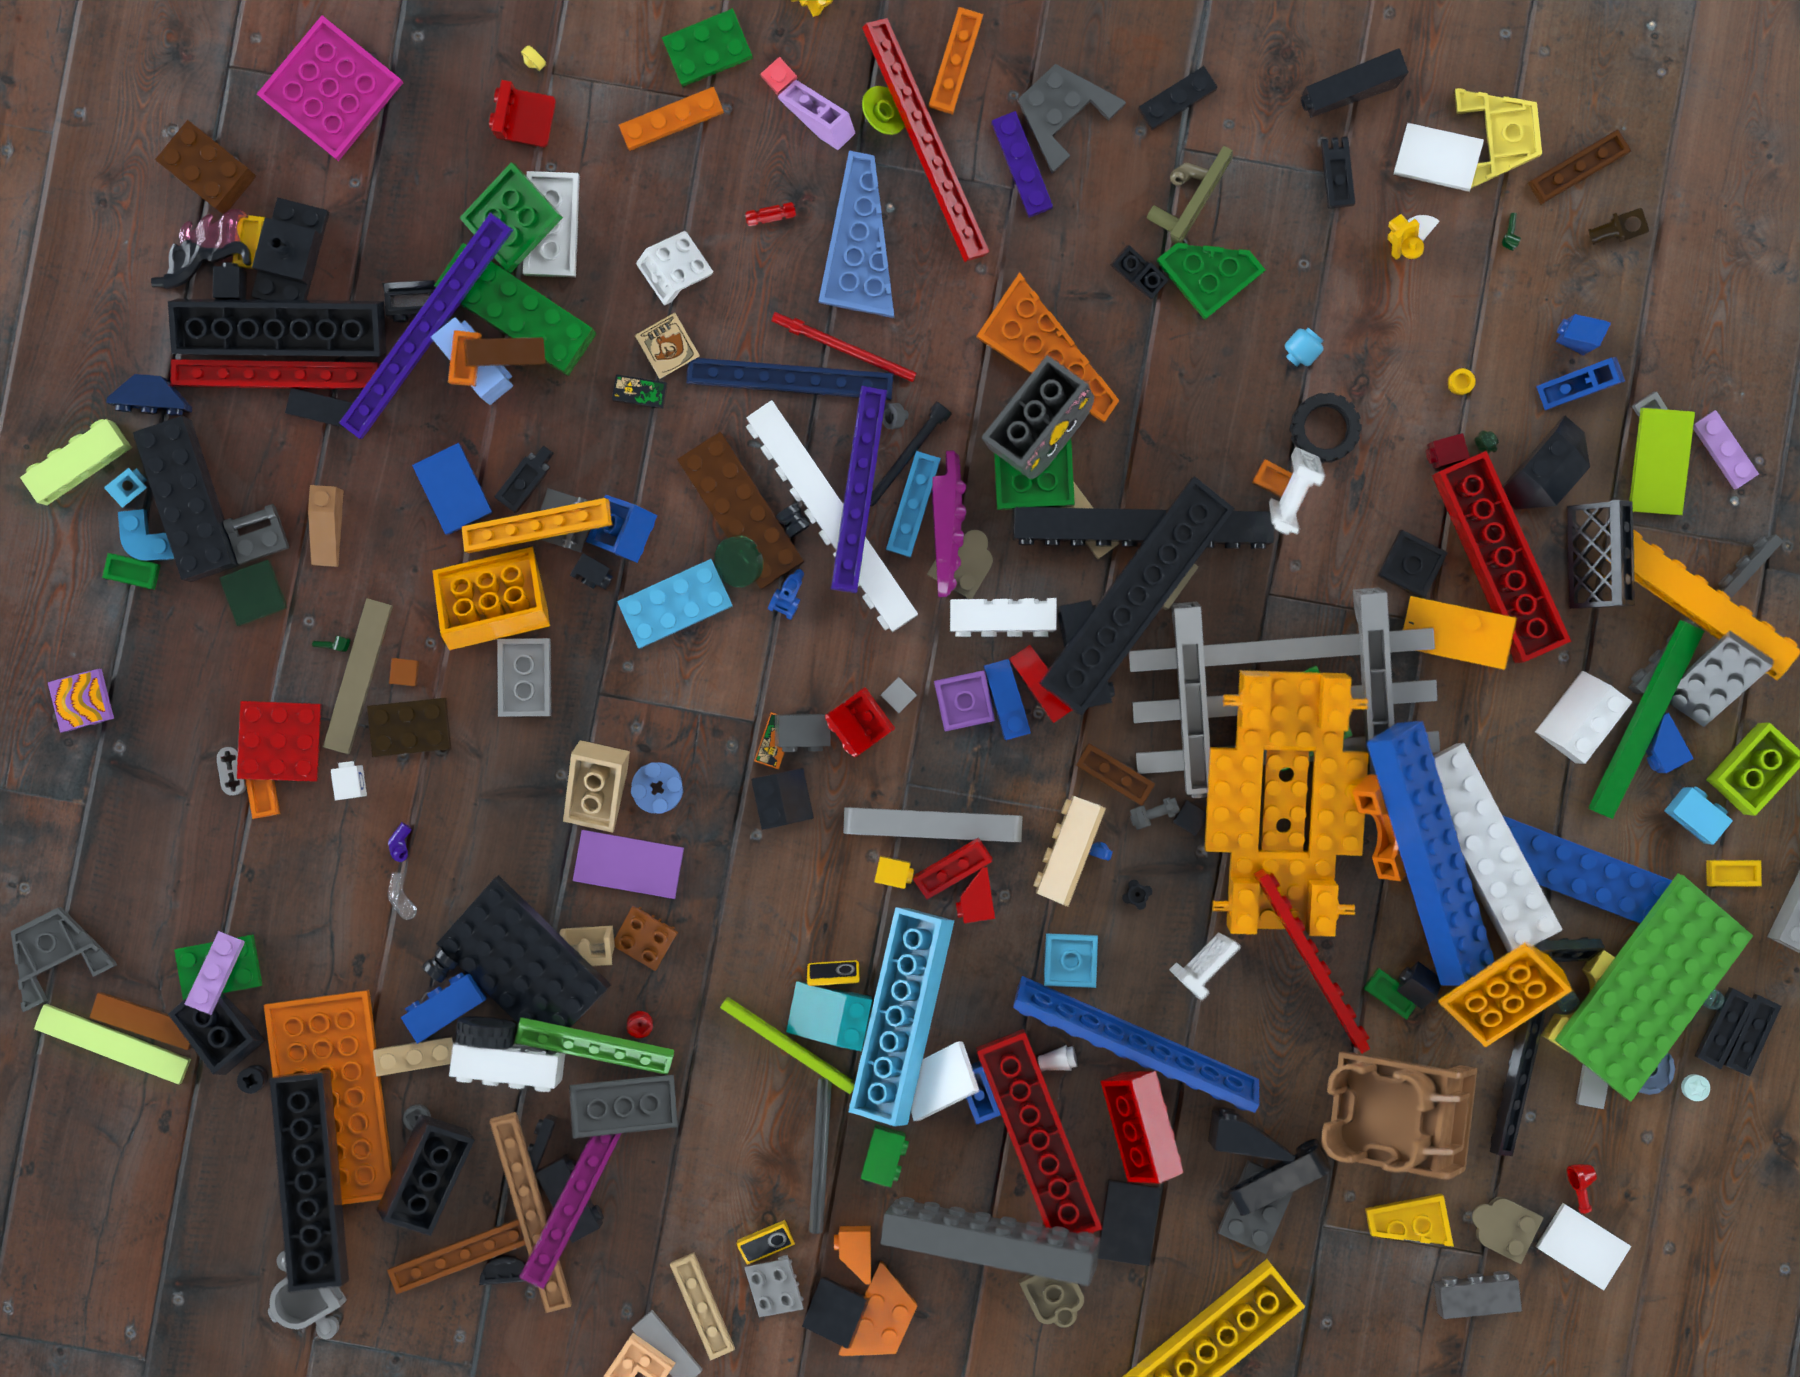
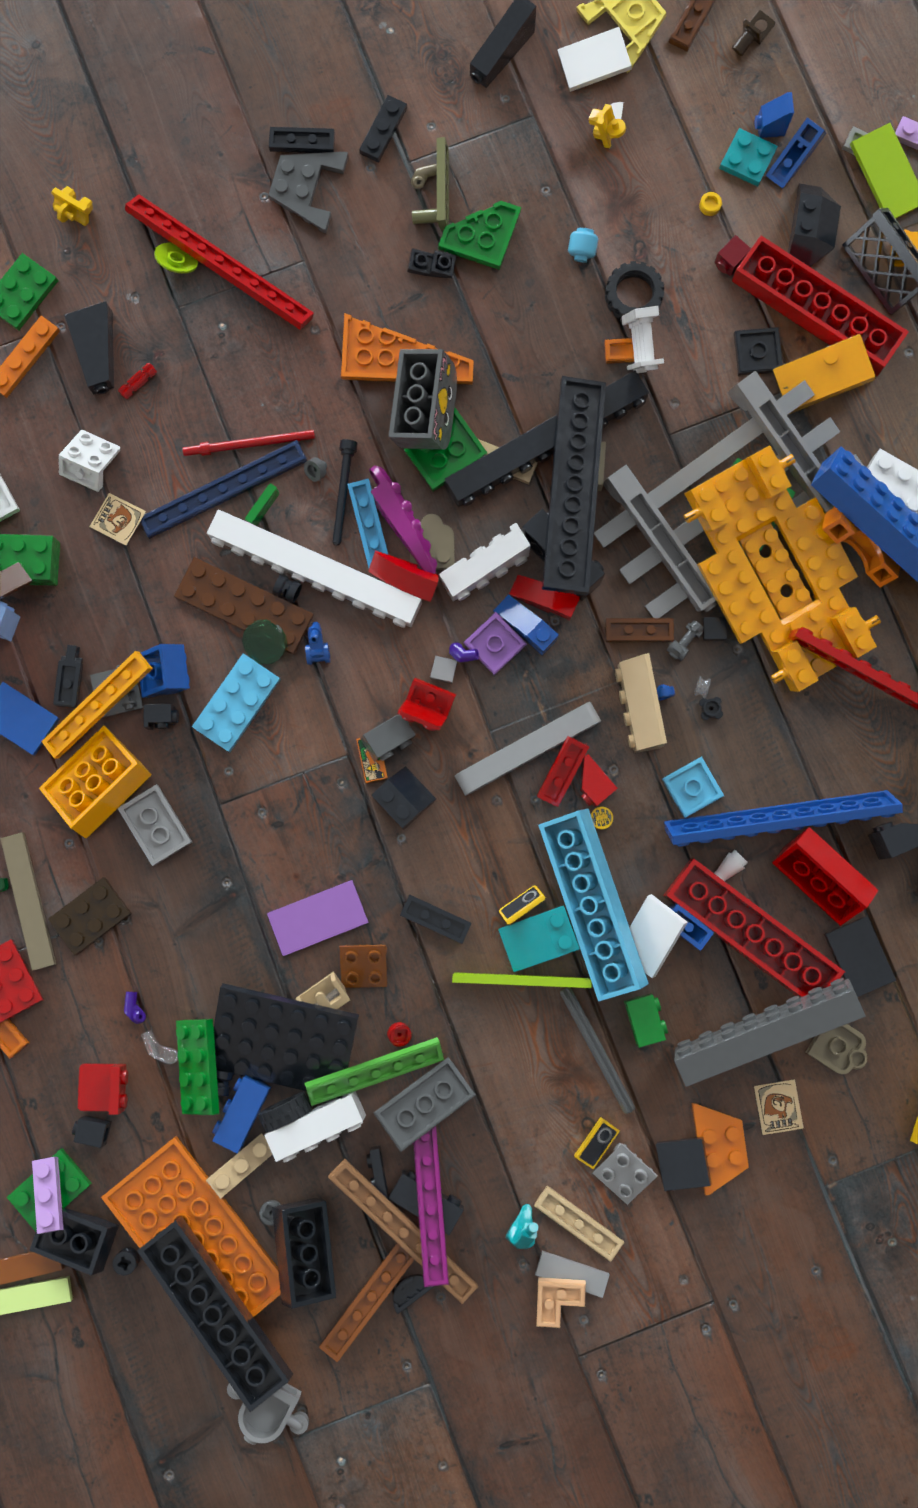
camera: 25 degrees left, 5 degrees down
(290, 936) = (91, 1131): none -> black brick
(325, 901) = (102, 1087): none -> red bracket
(348, 781) = (66, 984): white brick -> none
(404, 672) = (61, 876): dark orange tile -> none
(427, 938) = (197, 1067): none -> green plate
(595, 785) = (257, 873): tan slope -> none
(639, 391) = (117, 564): tile -> none
(642, 789) = (295, 856): medium blue plate -> none
(644, 1281) = (523, 1229): none -> teal animal
(741, 935) = (435, 919): none -> black plate
(749, 148) = (93, 340): none -> black slope
(778, 76) = (84, 281): coral plate -> none
(818, 421) = (262, 505): none -> green tile
(819, 114) = (134, 288): lavender slope -> none
(855, 1249) = (668, 1105): orange slope -> none
(857, 256) = (219, 372): medium blue wing -> none
(858, 489) = (322, 535): dark purple tile -> none
(893, 872) = (520, 801): yellow brick -> none
(915, 580) = (404, 575): none -> red slope
(924, 692) = (462, 655): none -> dark purple arm
(955, 60) = (207, 194): orange plate -> none
(960, 1315) = (778, 1107): none -> tan sticker
(963, 936) = (602, 817): none -> tile
(1022, 164) = (299, 239): dark purple plate -> none
(1087, 60) = (301, 140): none -> black plate
(1141, 868) = (702, 687): none -> clear bush
(1205, 964) = (795, 724): white fence -> none
(1338, 173) = (530, 112): black hinge -> none
(1486, 441) = (754, 232): clear green plate -> none
(1511, 240) = (681, 86): dark green hand -> none
(1531, 356) = (748, 157): none -> teal plate

